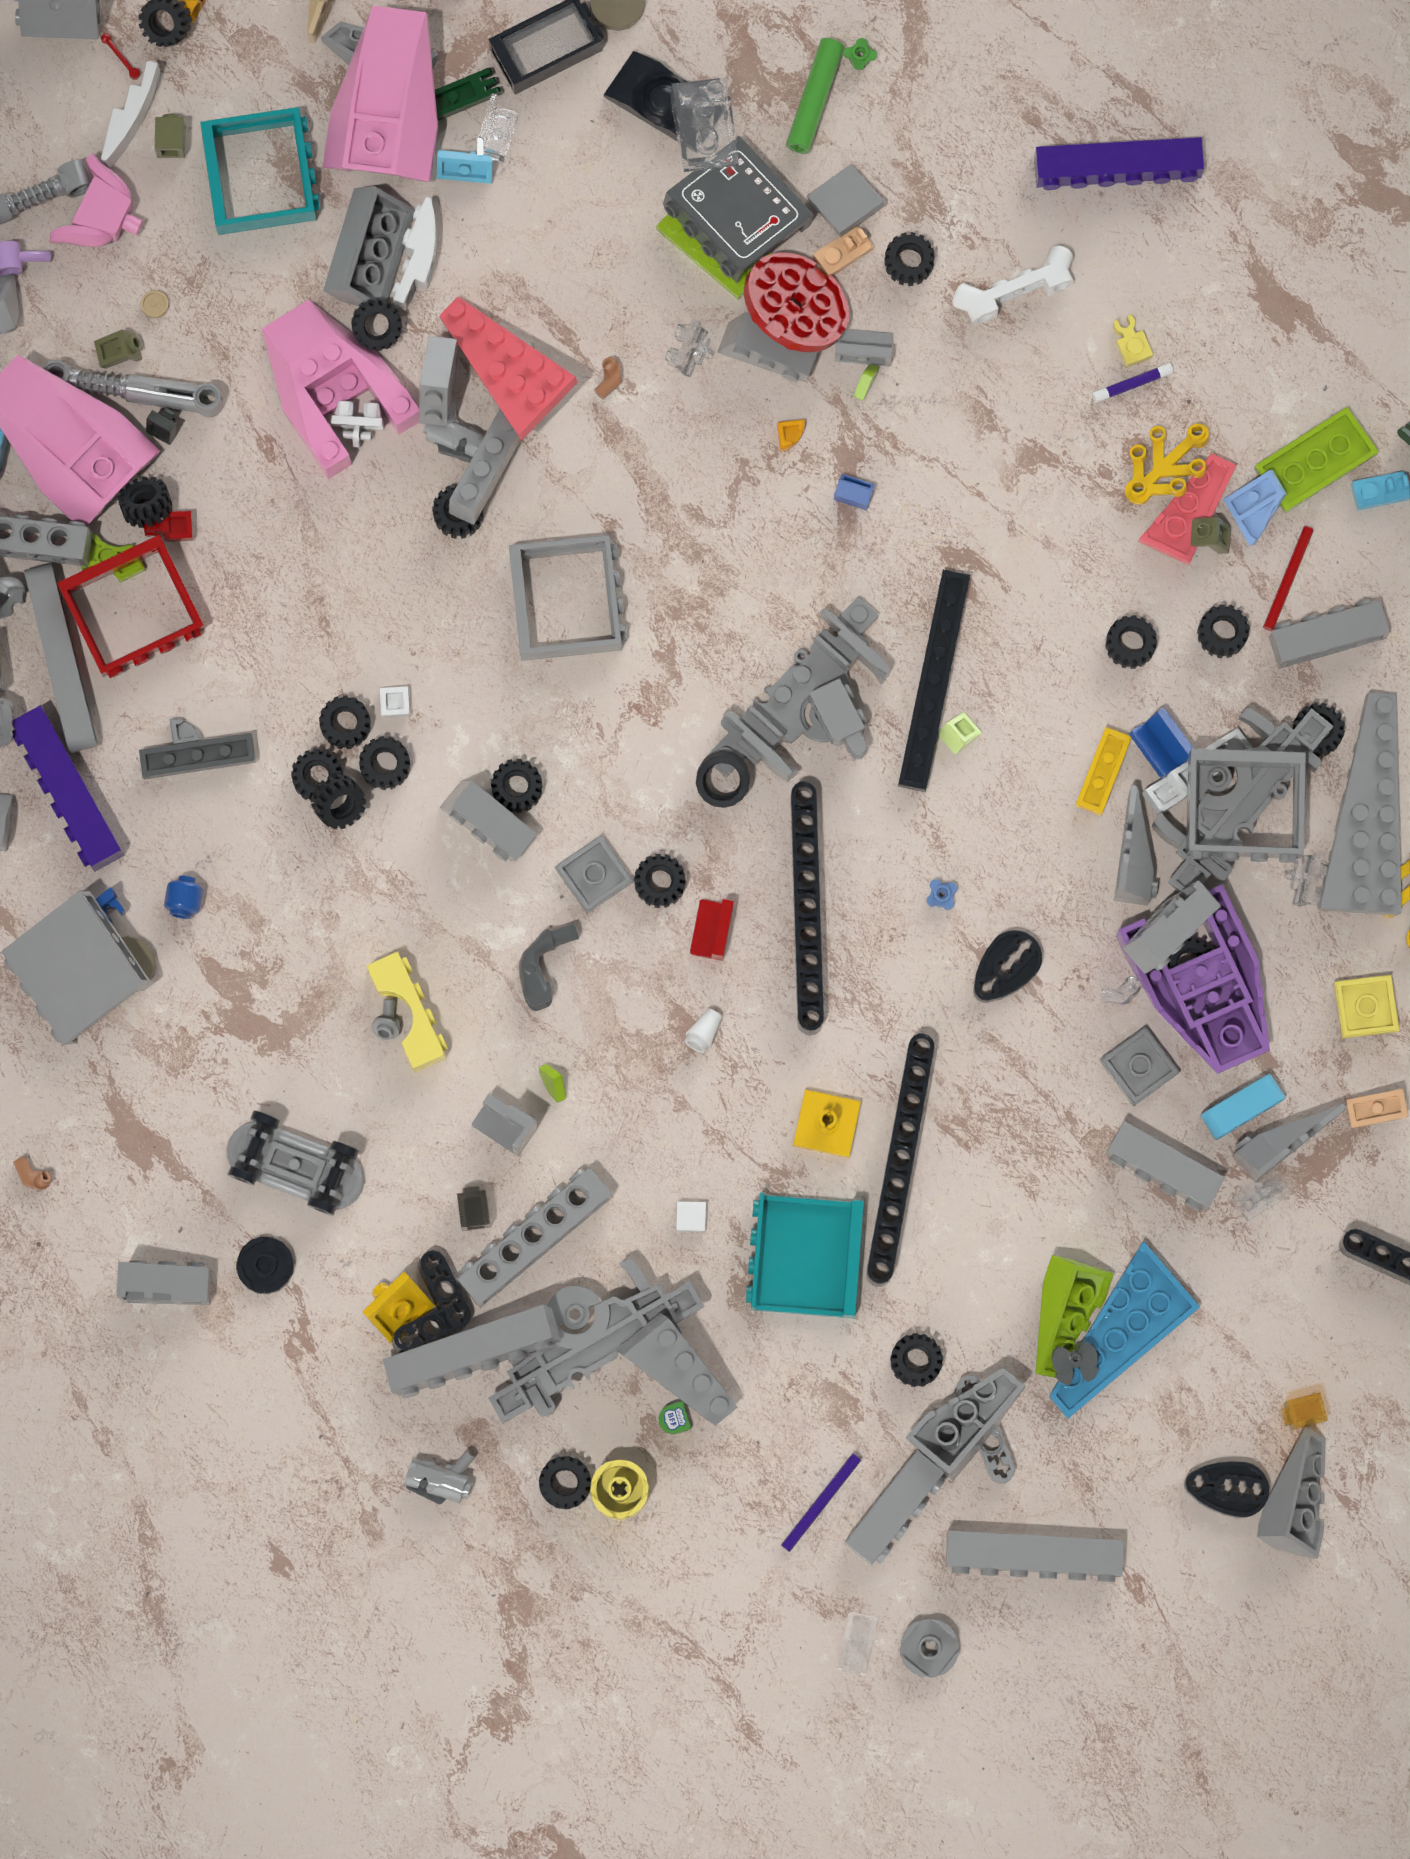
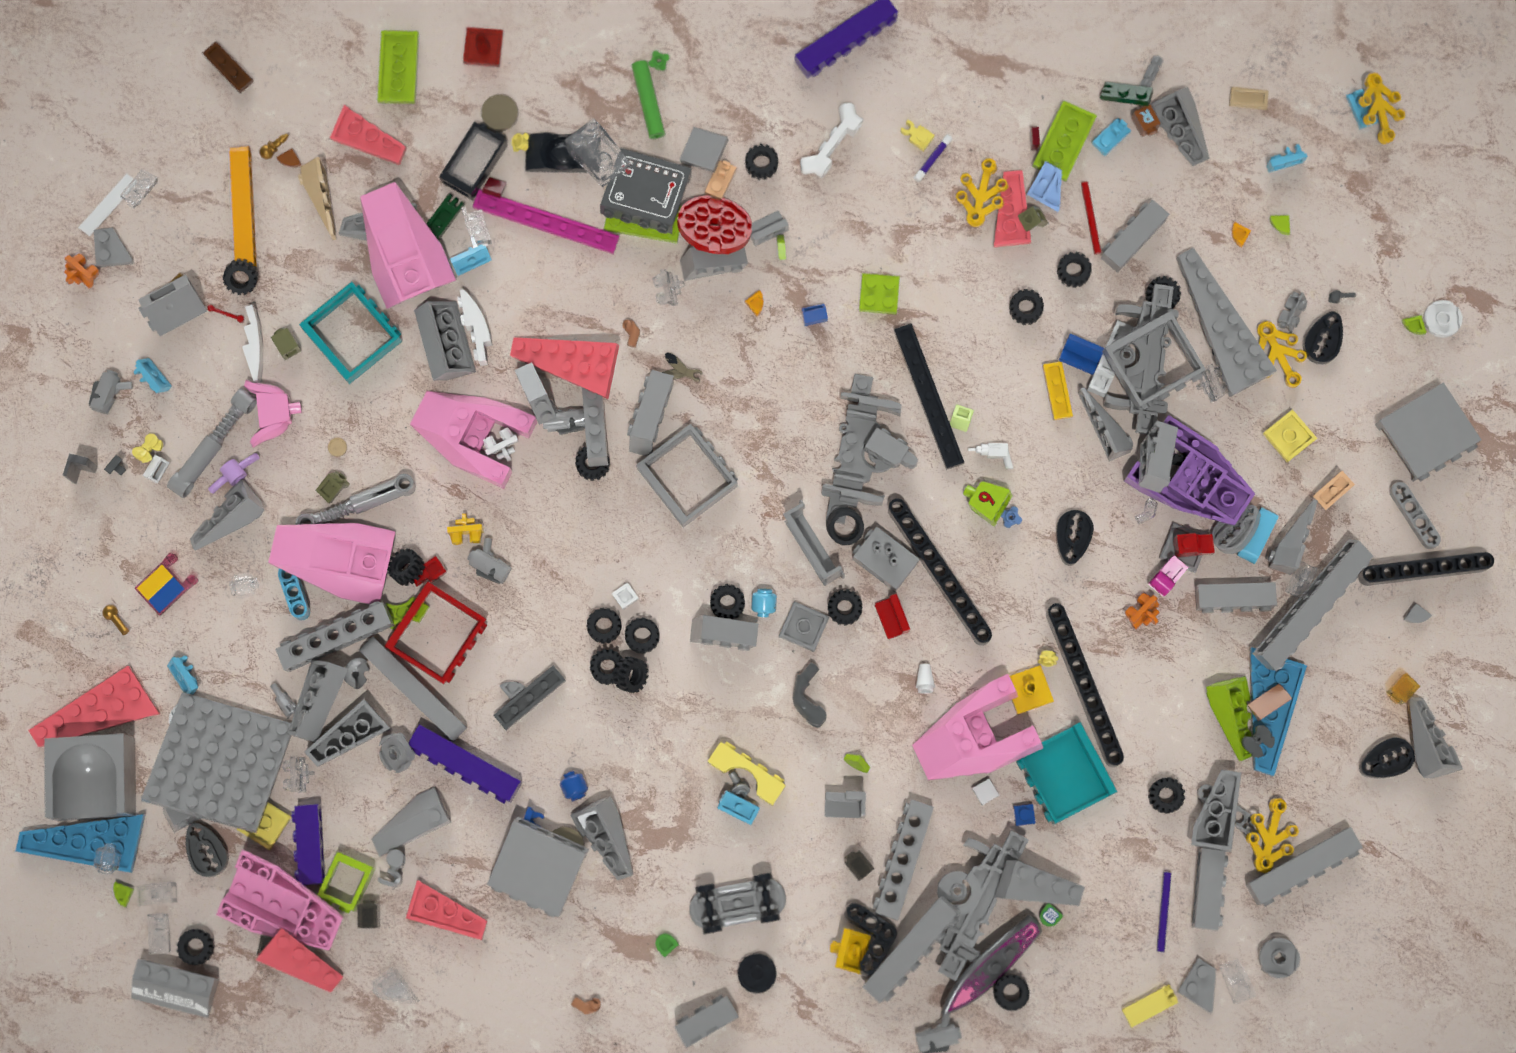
camera: 30 degrees left, 0 degrees up
(162, 426) = (387, 515): pearl dark grey tile -> none
(175, 1161) = (666, 944): none -> bright green tile
(187, 972) = (603, 828): none -> light grey wedge
(247, 560) = (487, 565): none -> light grey piece
(257, 508) = (475, 531): none -> yellow hips
(369, 1047) = (738, 807): none -> medium azure plate
(382, 341) = (469, 373): black tyre -> none
(551, 93) = (494, 187): none -> dark red tile
(561, 813) = (764, 602): none -> medium azure head
(562, 1433) = (992, 965): none -> flat silver piece
(567, 490) = (650, 412): none -> light grey wedge
(589, 175) = (547, 222): none -> dark pink tile
(618, 1473) = (1055, 970): light yellow brick -> none
(619, 55) = (520, 142): none -> light yellow plate
(640, 462) = (680, 369): none -> dark tan piece
(665, 776) = (811, 545): none -> light grey piece
(704, 1136) = (963, 739): none -> bright pink wedge
(721, 1275) = (1024, 815): none -> blue plate
(728, 1606) = (1150, 1006): none -> light yellow hinge
(748, 850) = (885, 558): none -> light grey piece
(808, 1620) = (1200, 985): none -> light grey wing
(875, 1099) = (1048, 658): none -> light yellow plate
(925, 856) = (988, 501): none -> lime torso
(954, 514) = (879, 294): none -> lime plate
(975, 800) = (995, 450): none -> white piece
(1013, 1493) = (1270, 838): none -> yellow plant
(1034, 1117) = (1146, 613): none -> orange hips
(1094, 1087) = (1168, 576): none -> plate
(1120, 1322) = (1269, 702): none -> nougat slope
(1151, 1068) = (1193, 545): none -> red arch
(1235, 1084) = (1242, 537): none -> light grey piece
(1254, 1235) = (1313, 605): none -> light grey brick
(1278, 434) = (1034, 139): none -> dark red tile
(1385, 1331) = (1417, 615): none -> light grey tile

